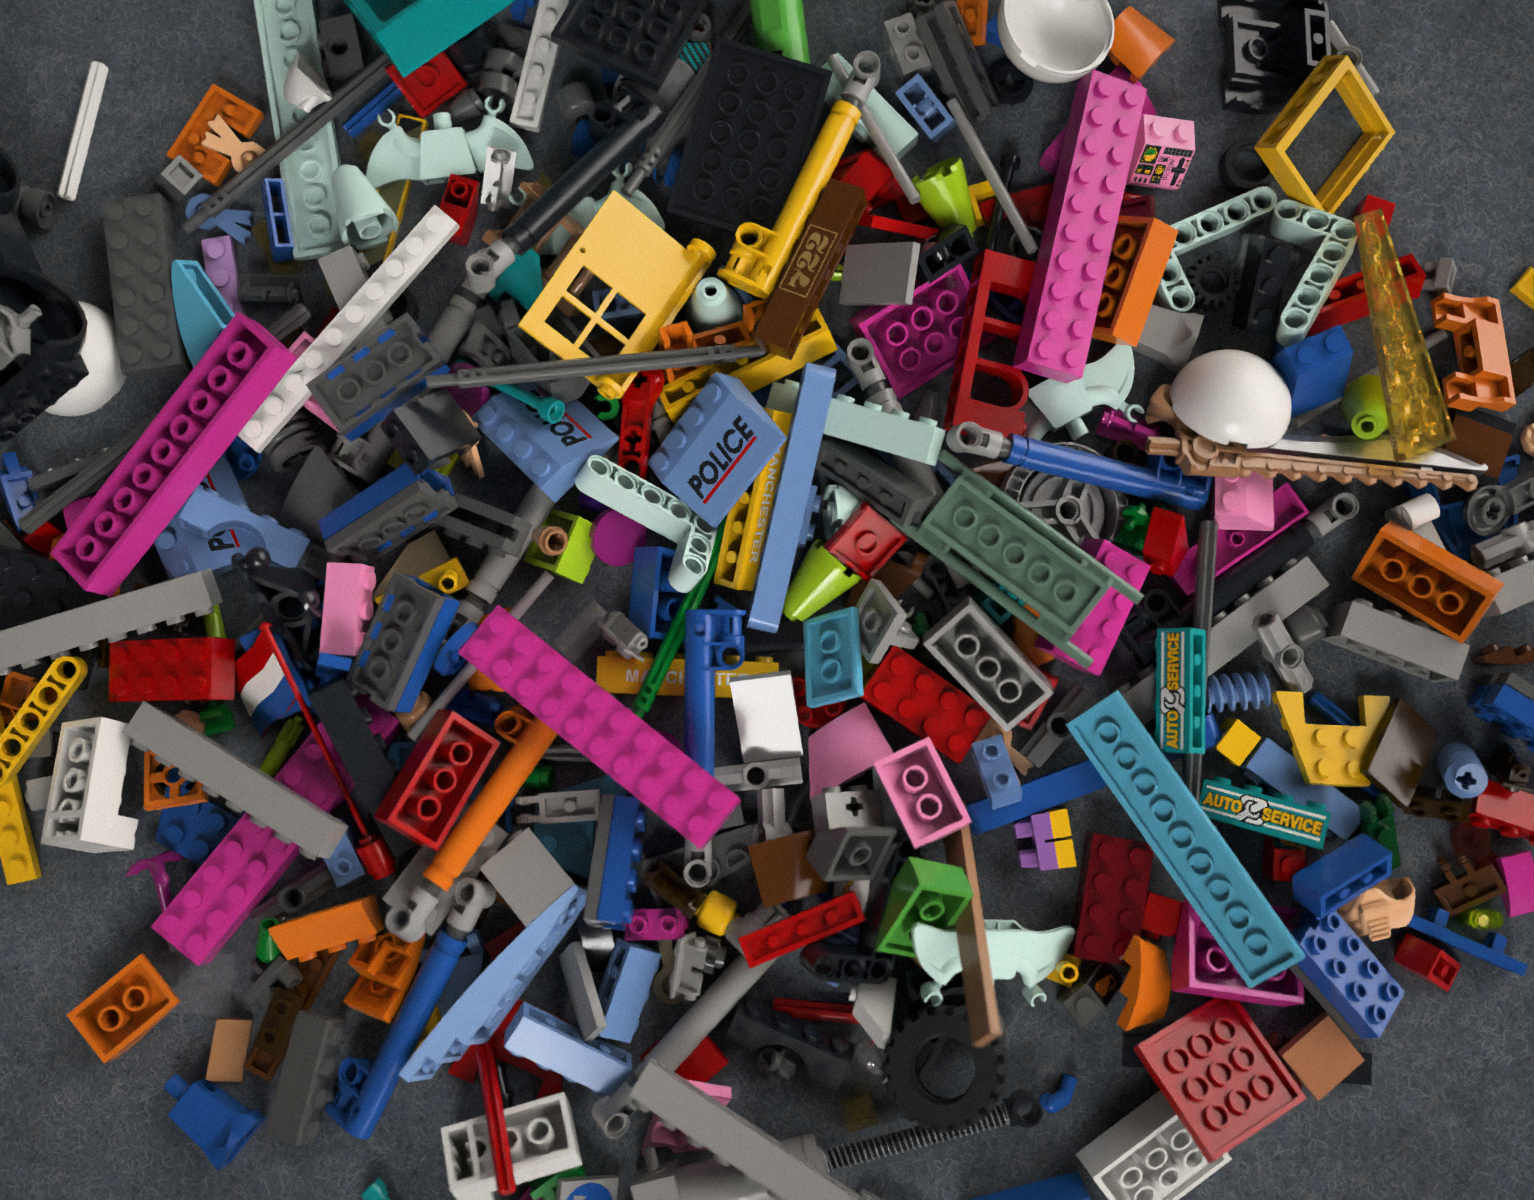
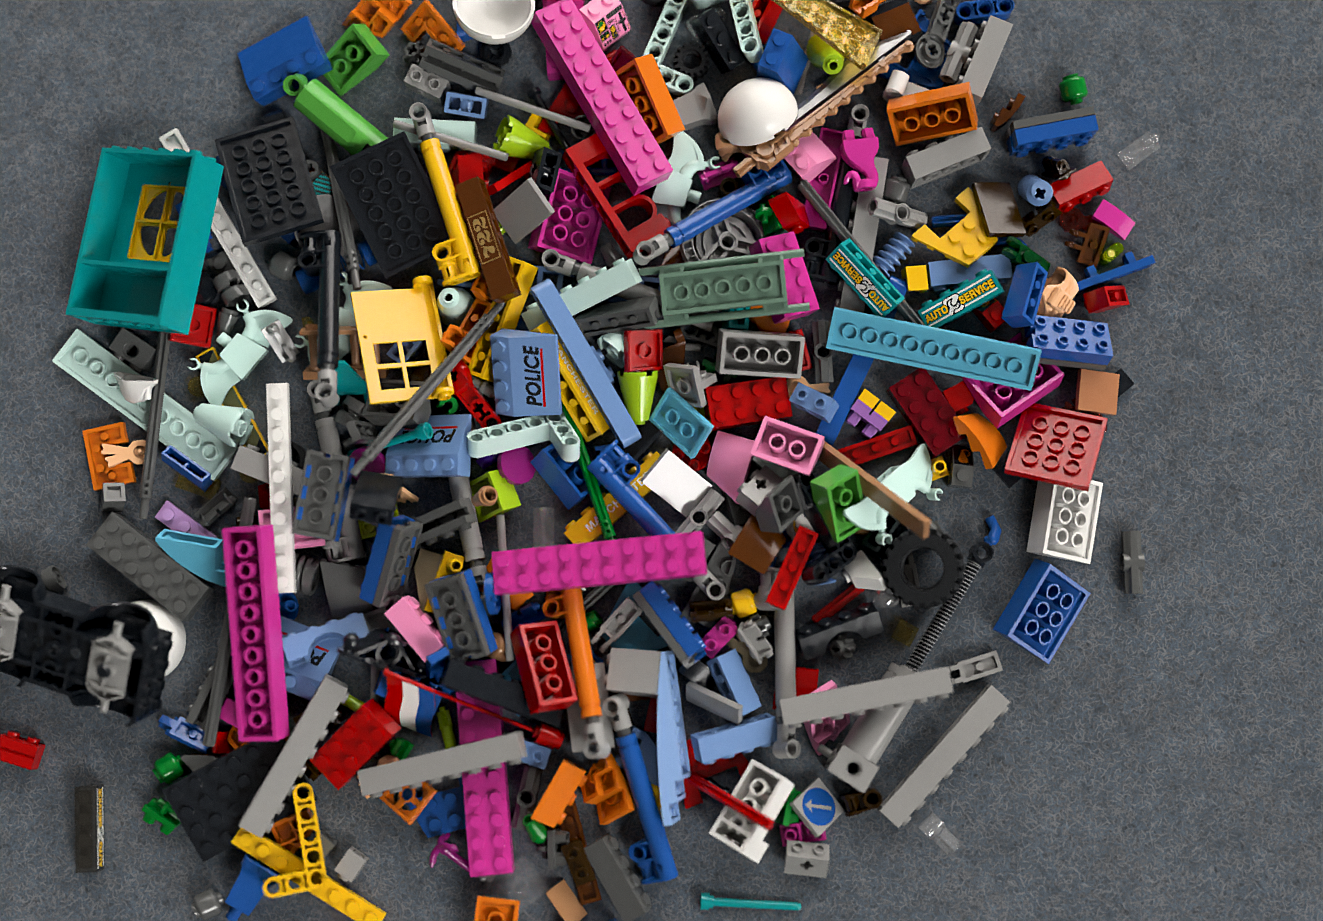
camera: 45 degrees left, 0 degrees up
(82, 131) = (35, 519): white axle -> none
(89, 788) = (371, 840): white hinge -> none
(226, 220) = (157, 495): medium blue piece -> none
(370, 110) = (178, 367): blue axle -> none
(461, 205) = (273, 371): red slope -> none
(628, 637) = (567, 508): light grey hinge -> none
(1024, 885) = (880, 445): none -> red plate
(1301, 552) = (860, 156): none -> dark pink hips

